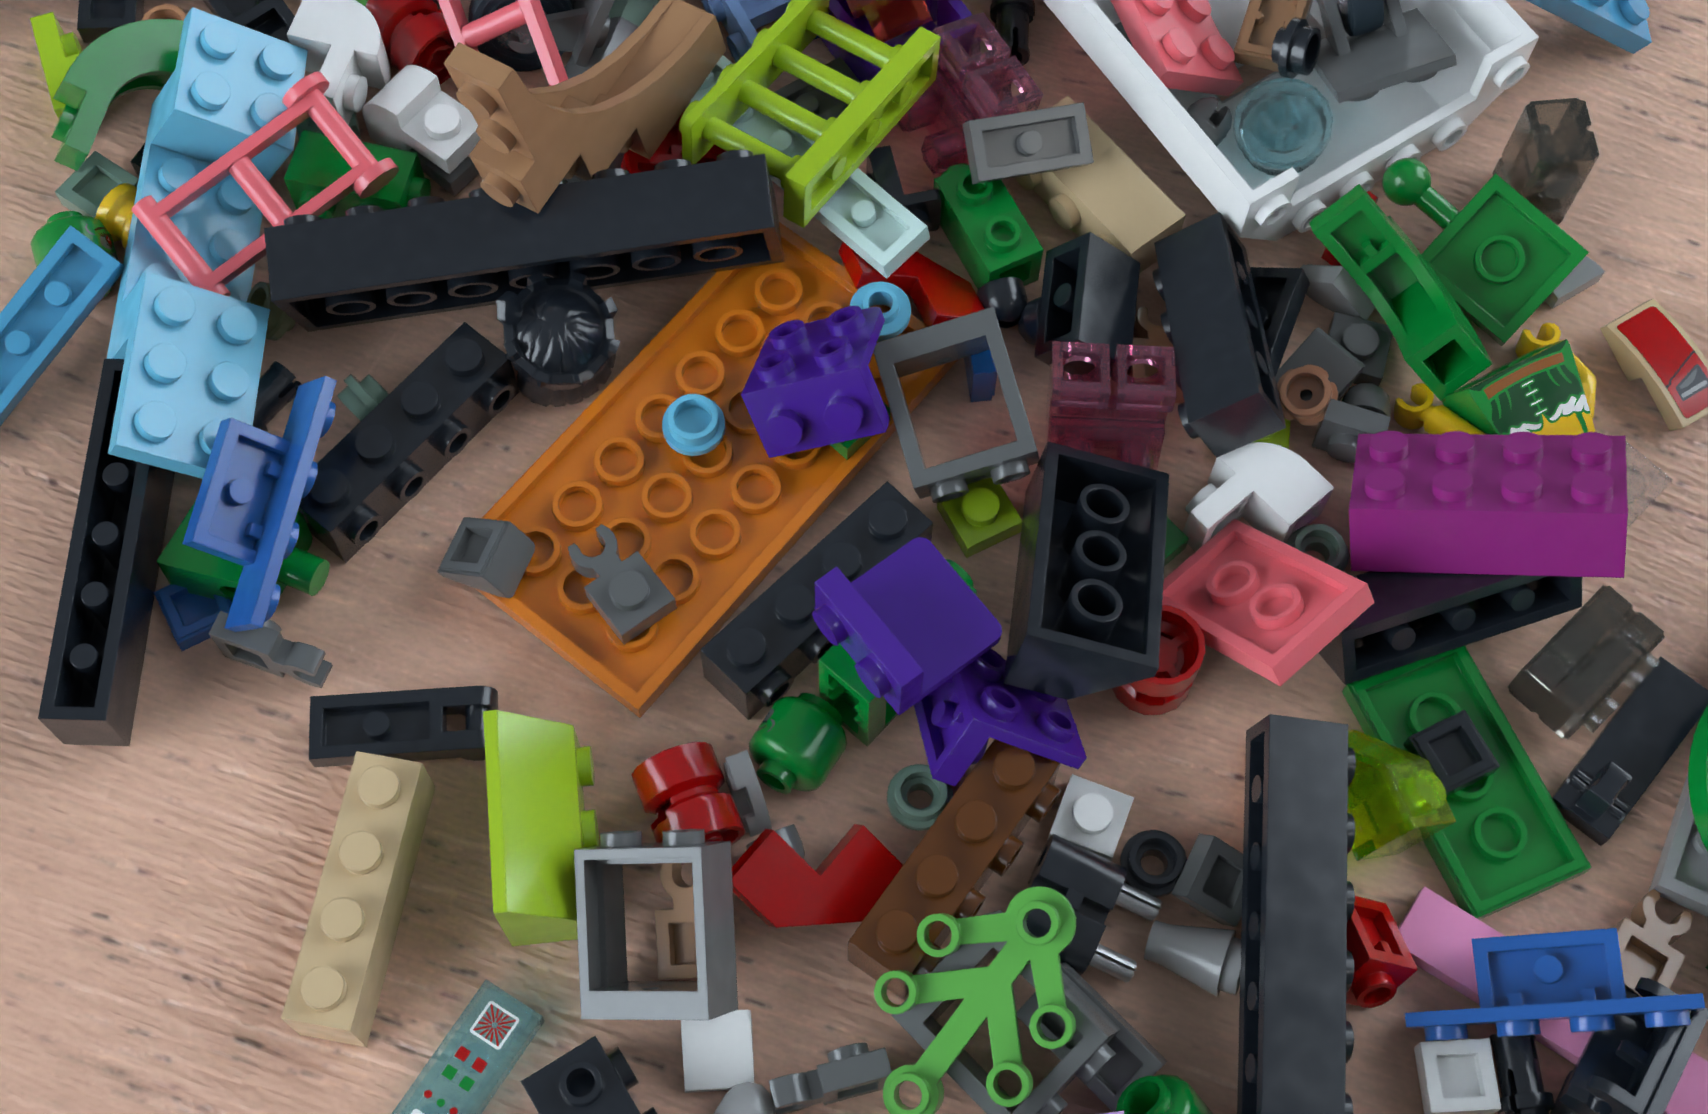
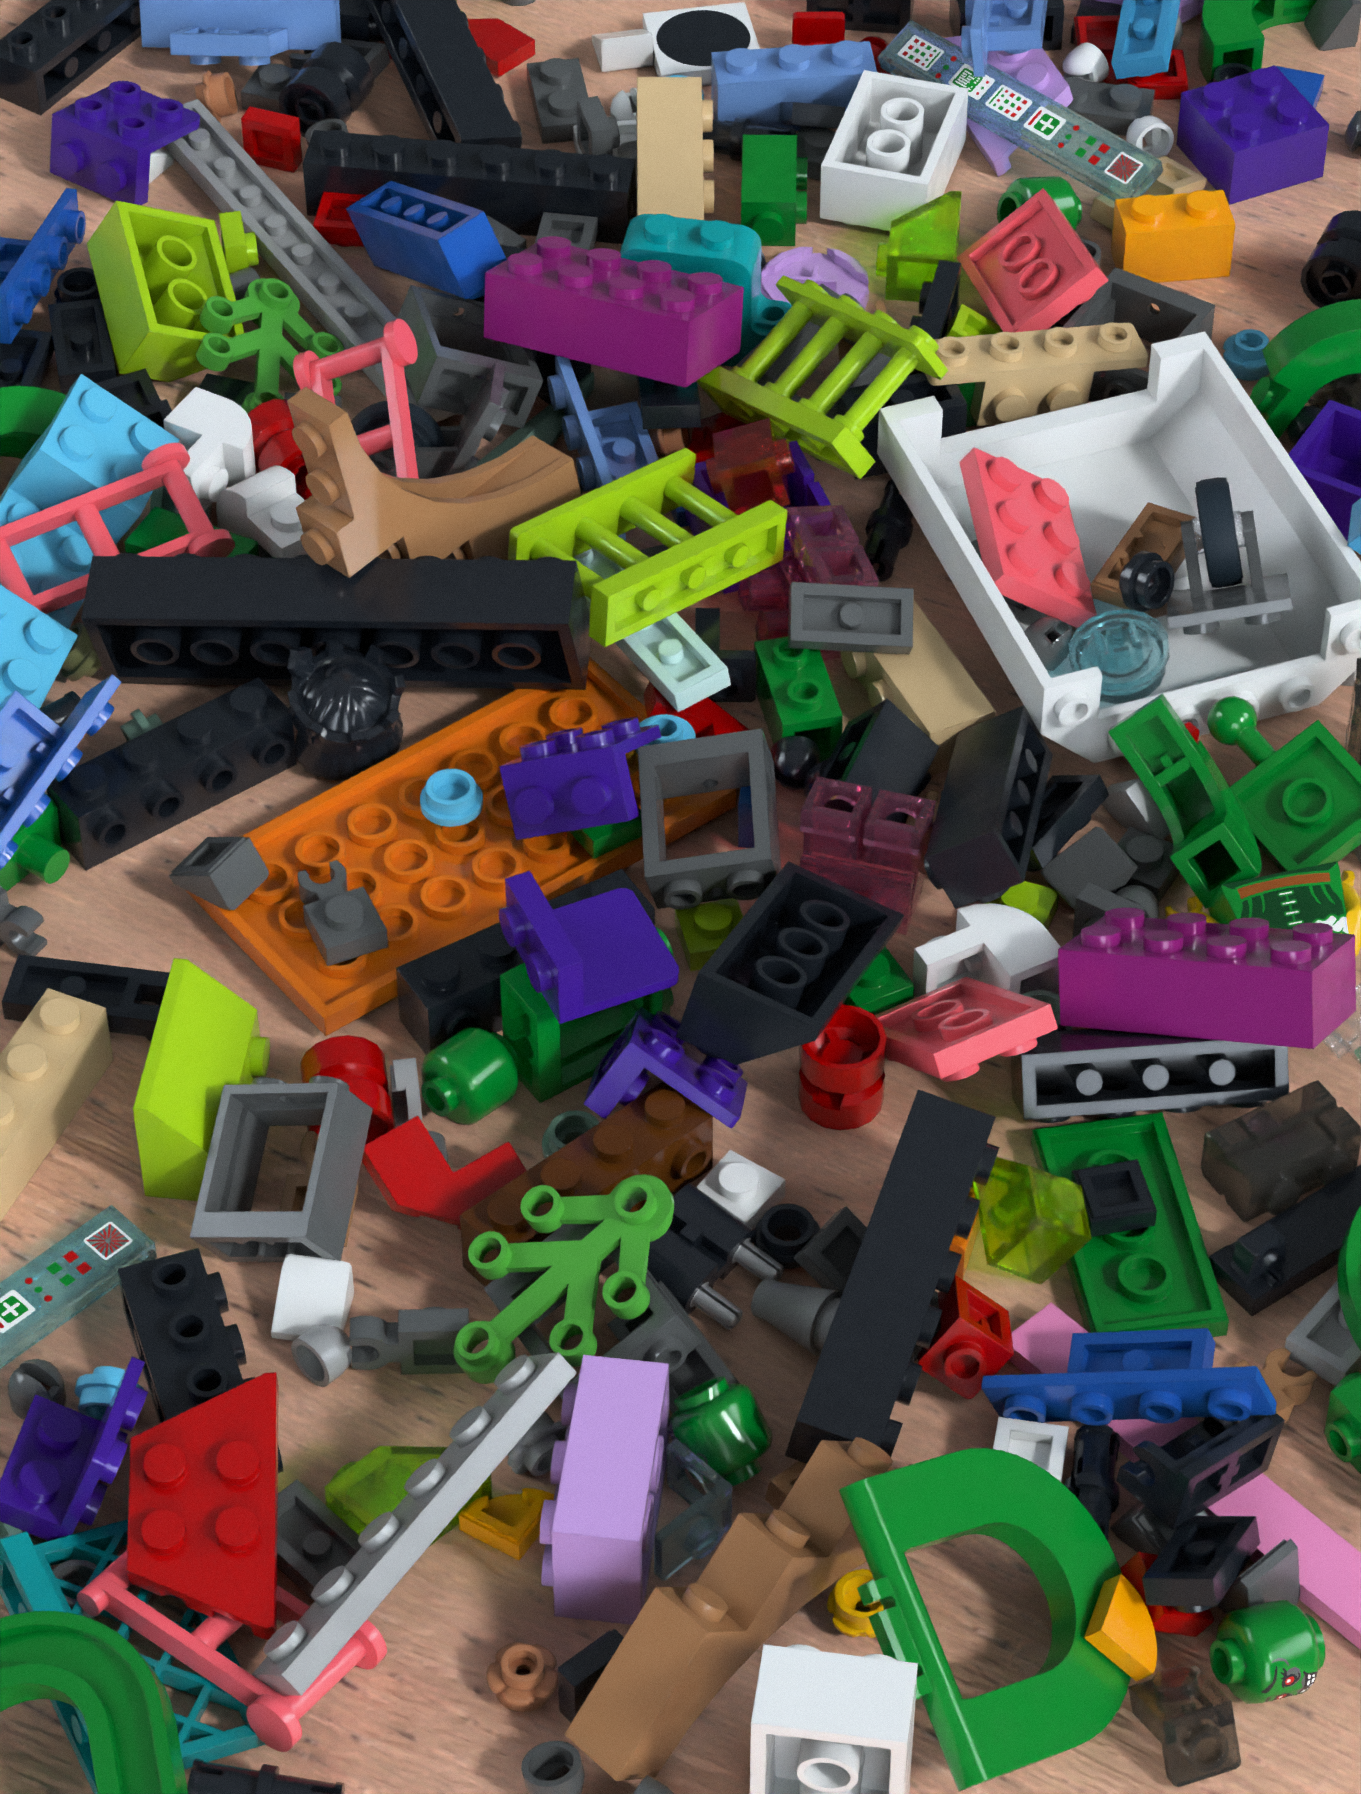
camera: 15 degrees right, 20 degrees down
(1306, 378) = (1061, 866): nougat plate -> none

